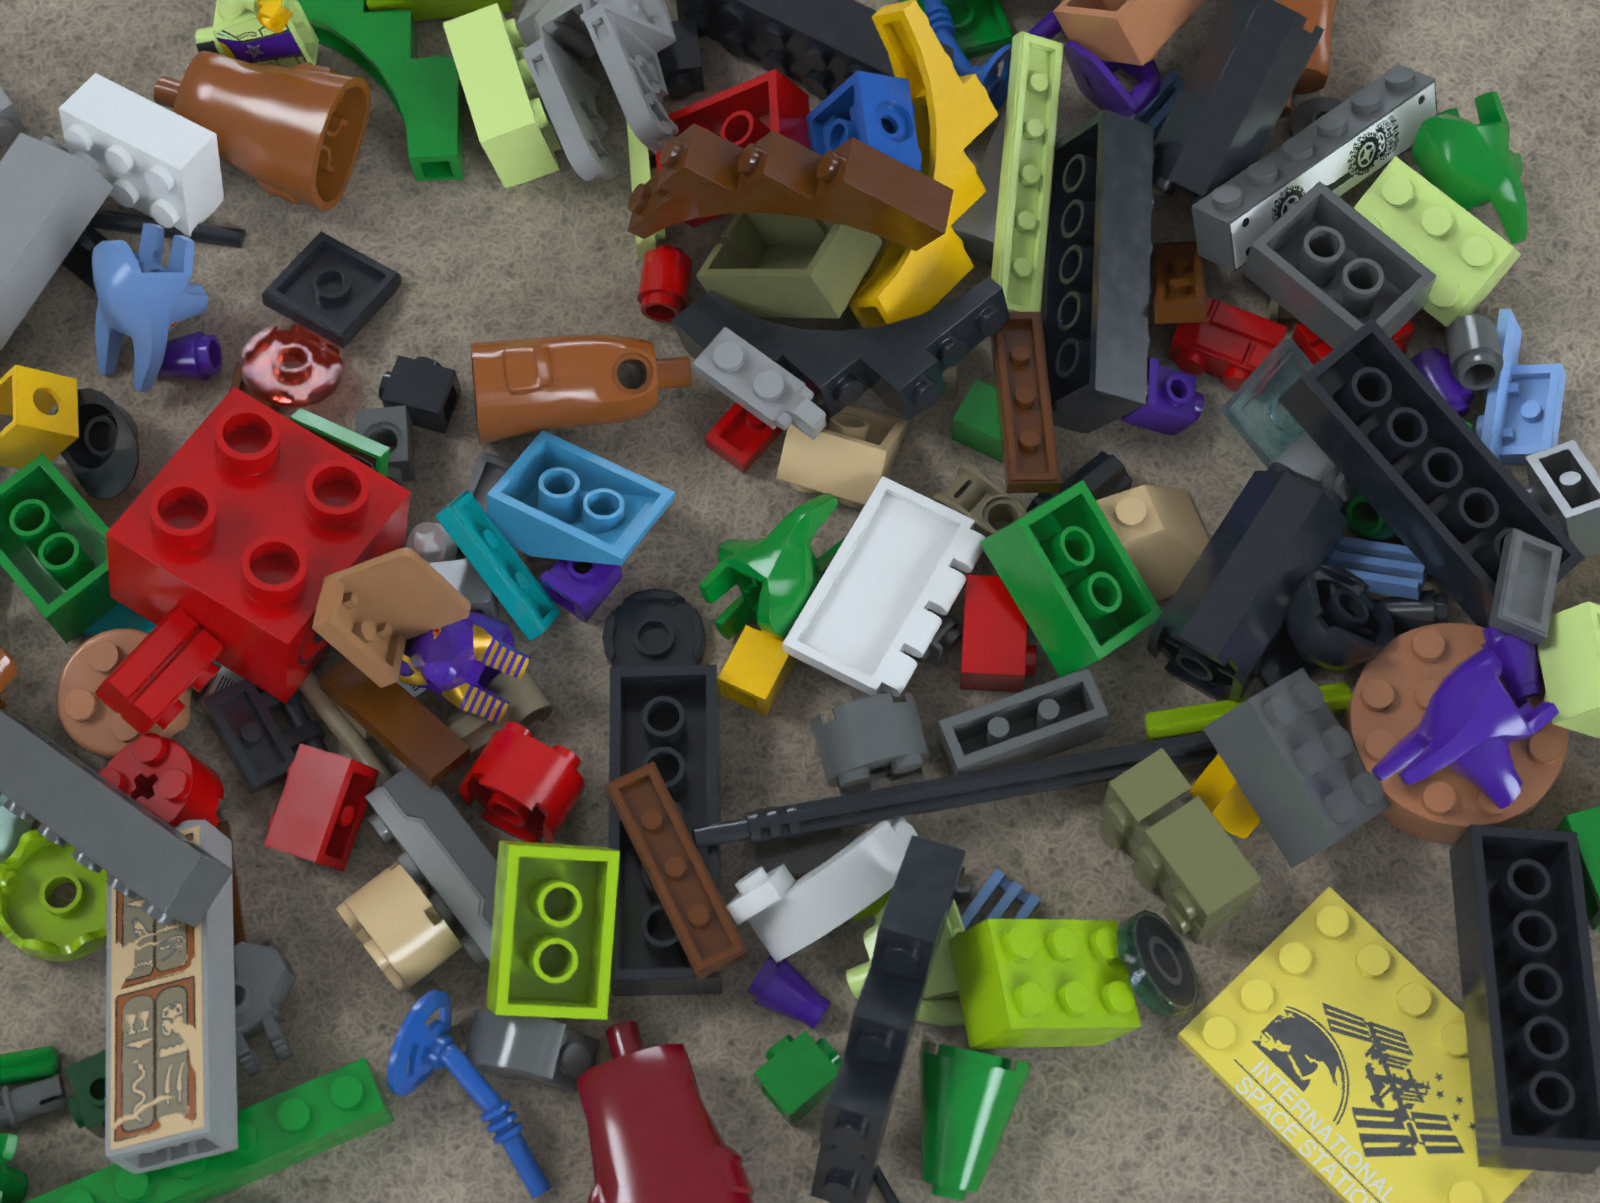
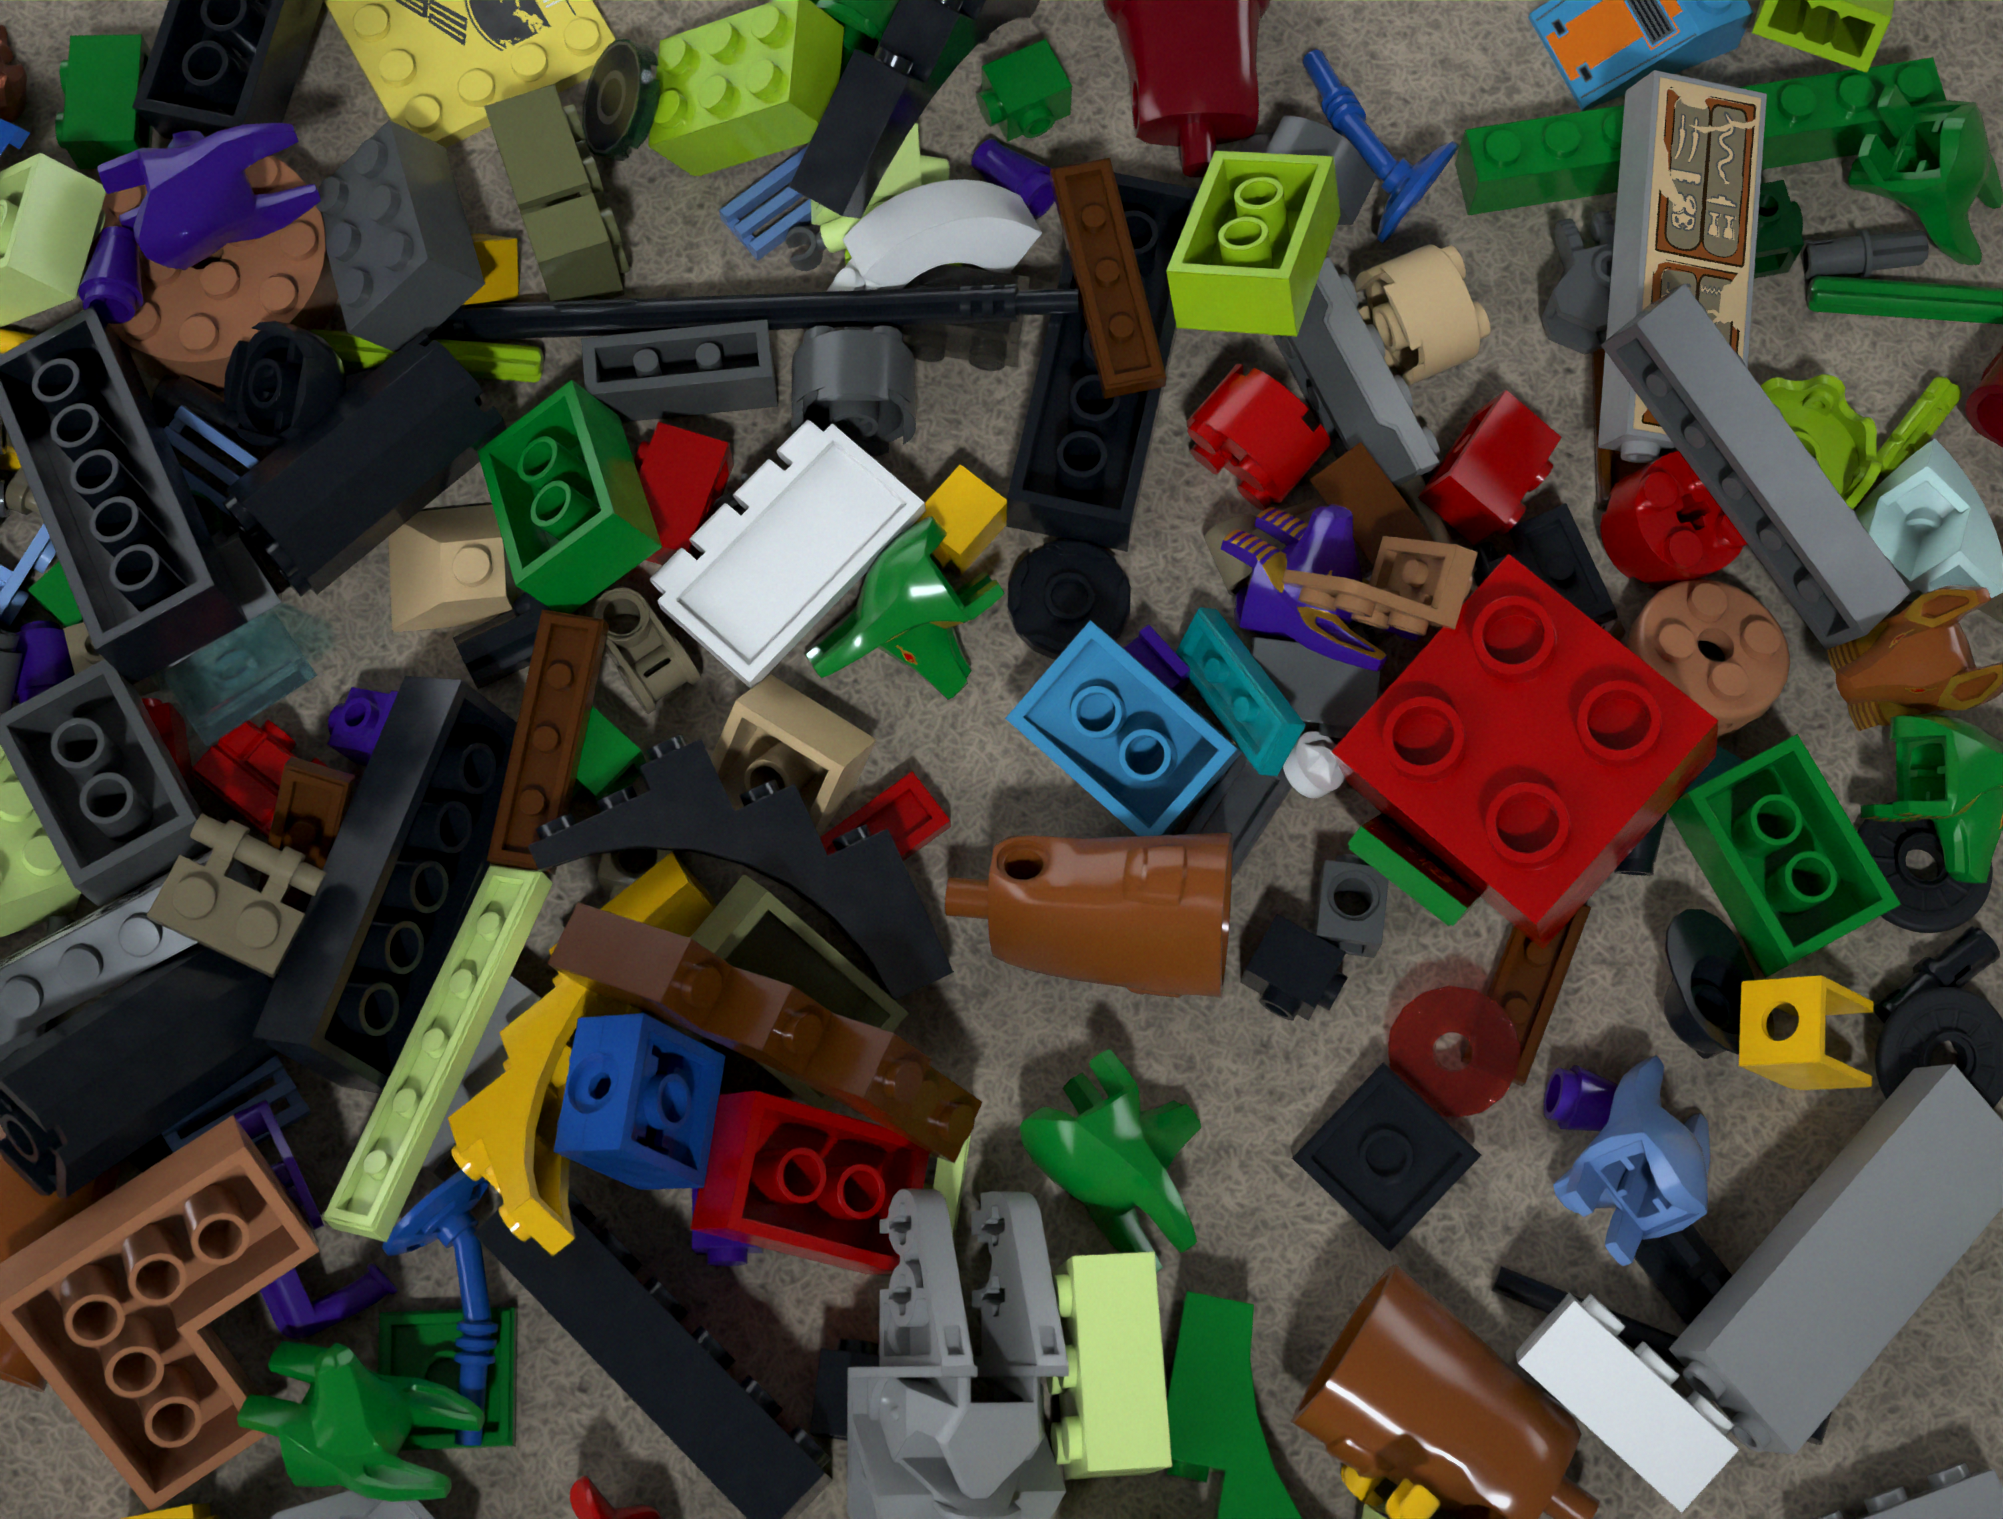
camera: 170 degrees left, 5 degrees up
(160, 671) = (1670, 608): red brick -> none
(525, 233) = (1116, 1156): none -> green piece
(664, 283) = (955, 1040): red brick -> none
(759, 384) = (868, 813): light grey hinge -> none
(759, 891) = (1020, 241): white plate -> none
(1198, 186) = (227, 914): none -> dark tan plate
(1525, 587) = (65, 321): flat silver tile -> none

